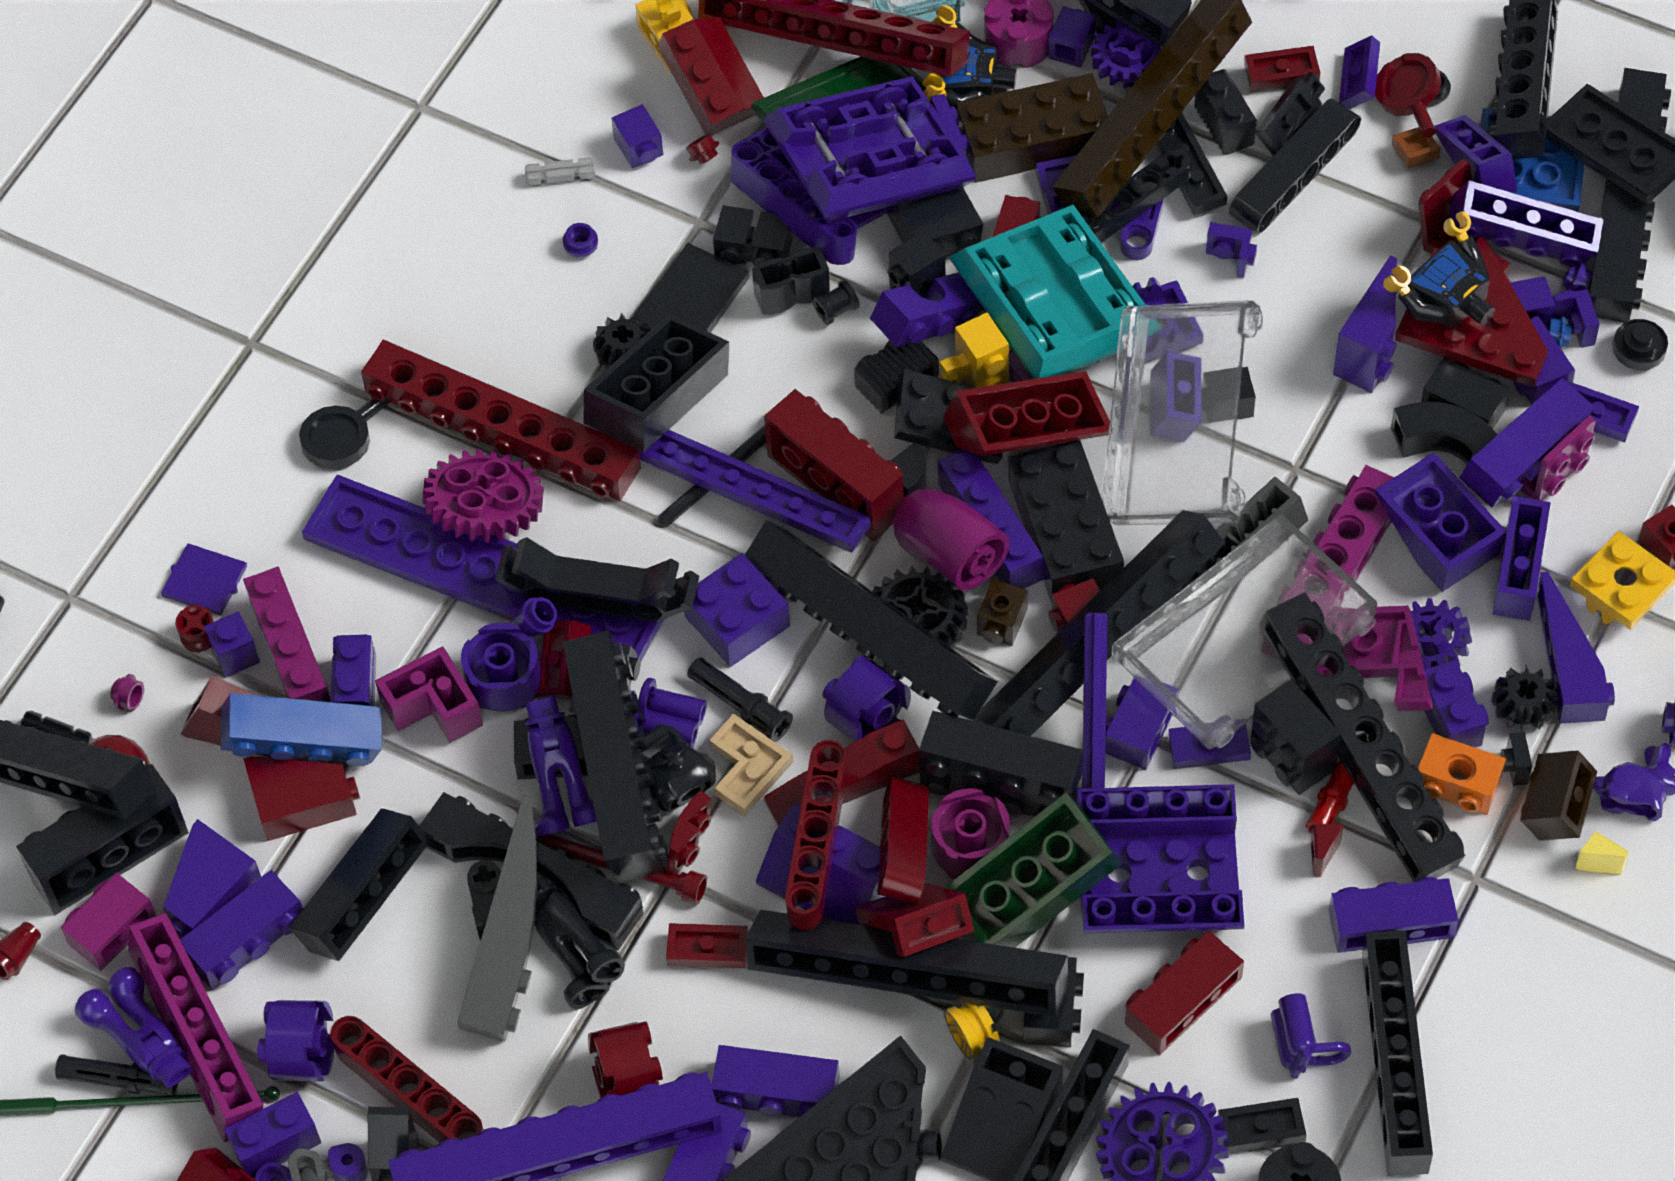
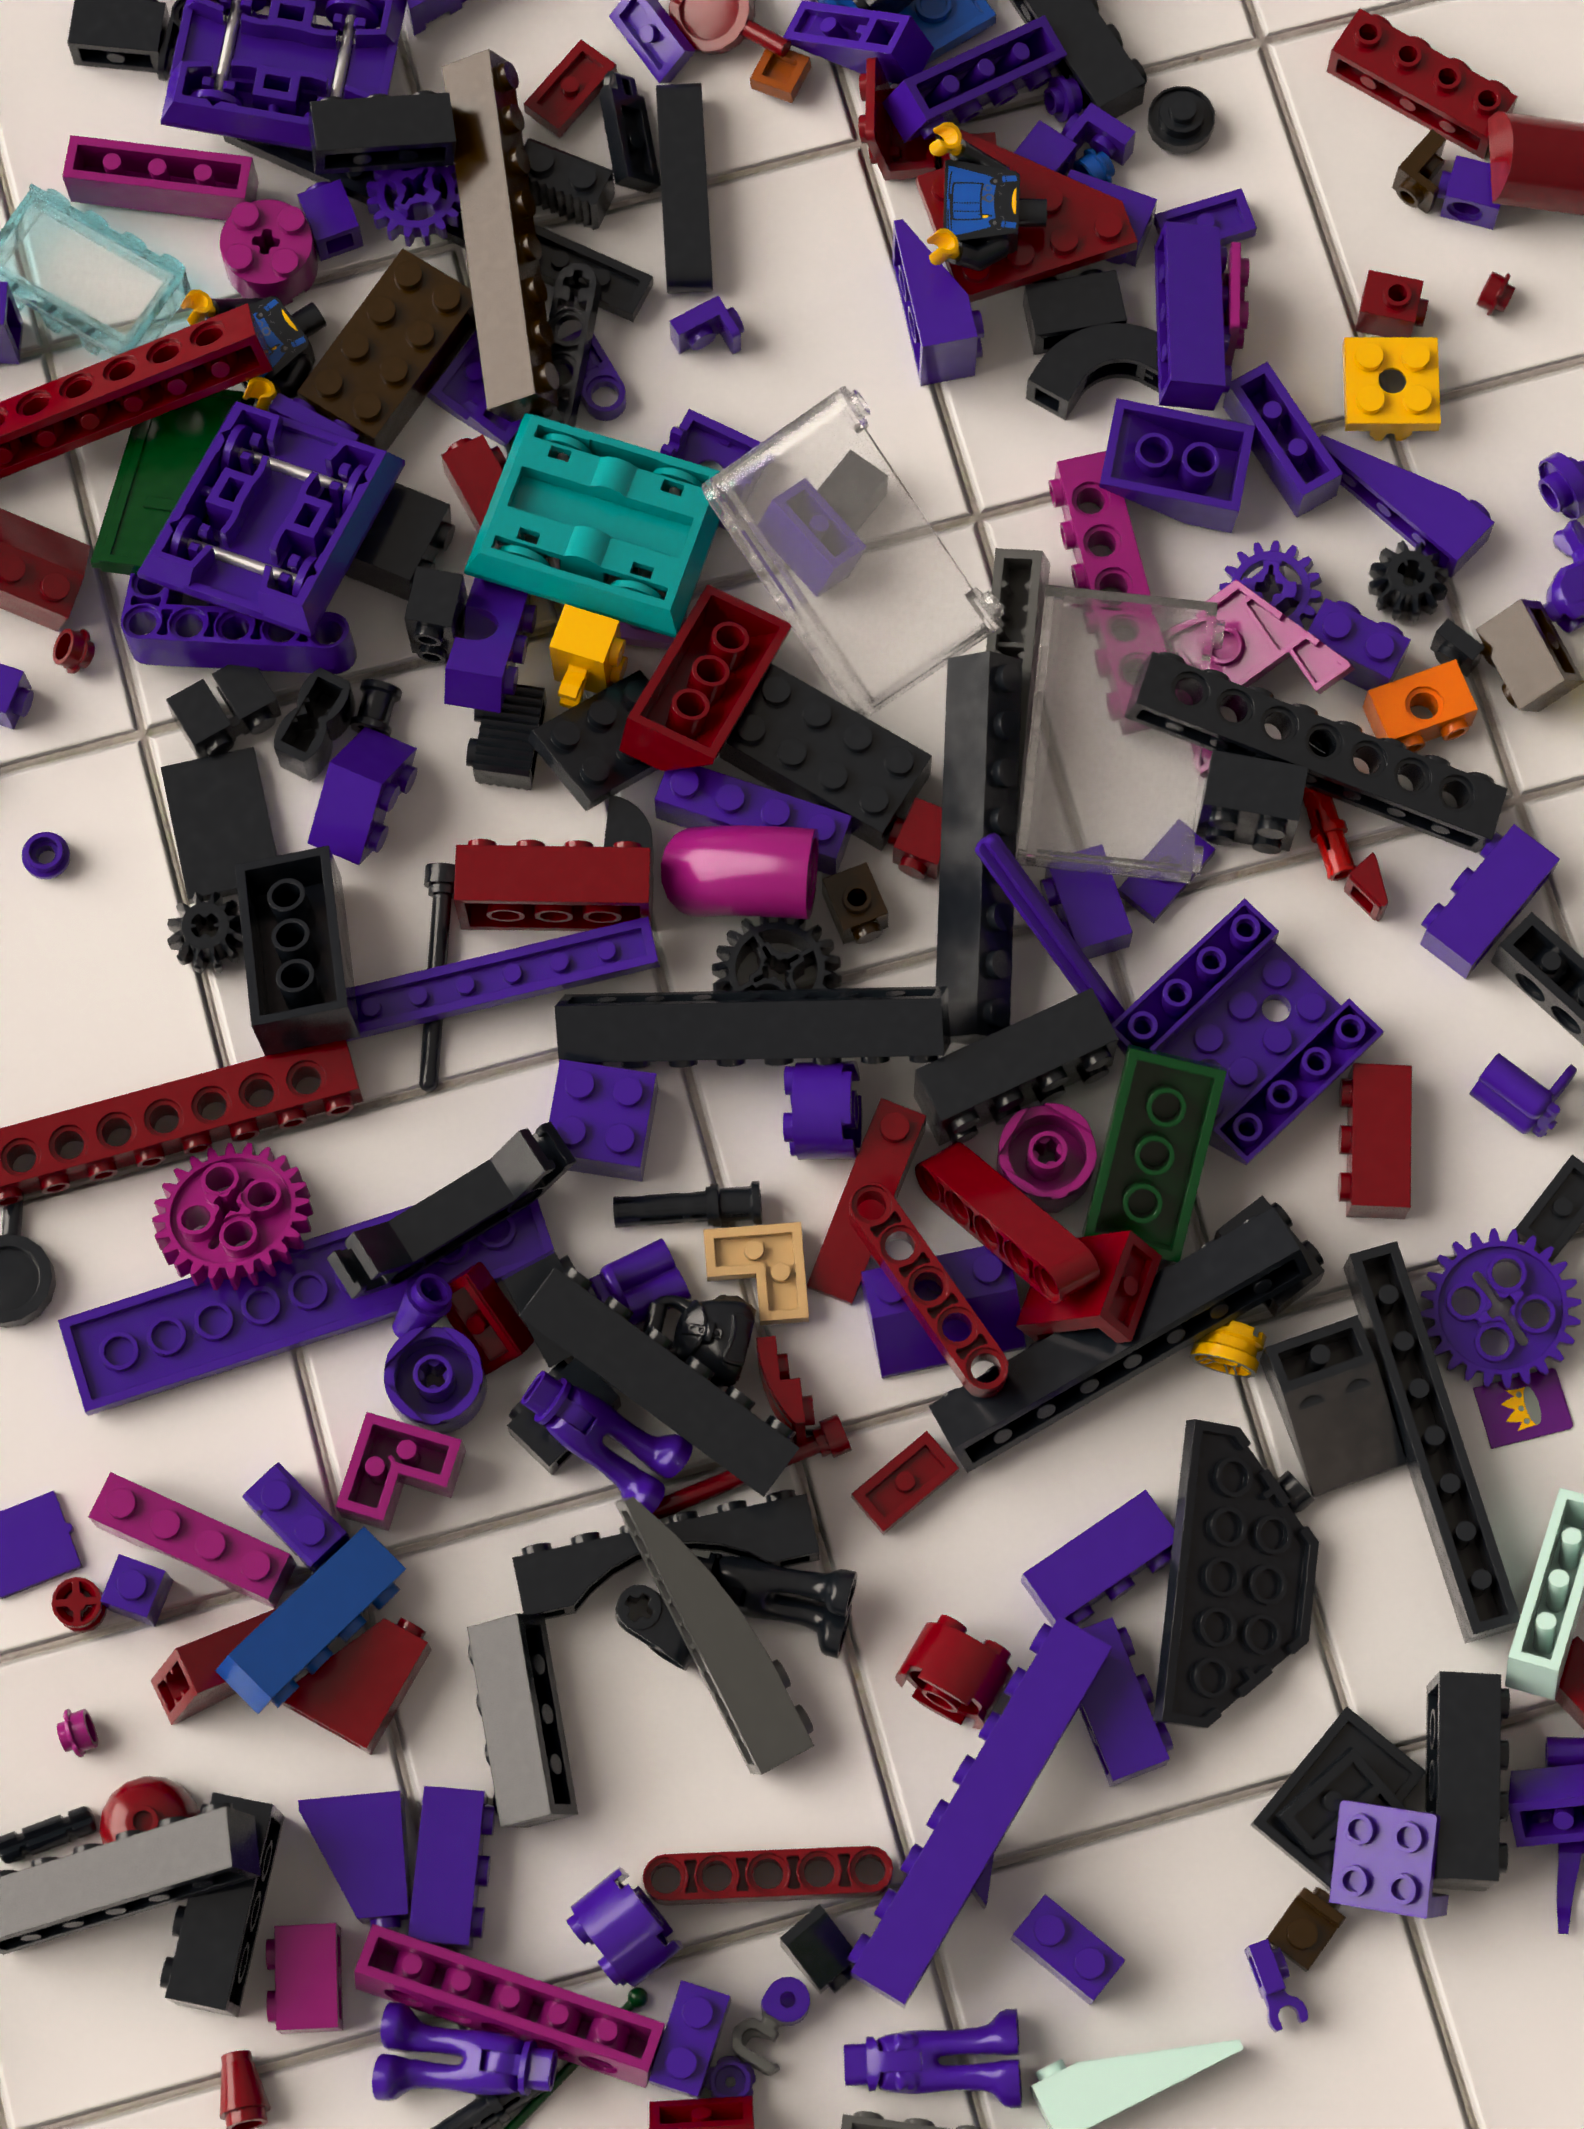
camera: 45 degrees left, 15 degrees up
(778, 329) = (359, 792): none -> dark purple brick

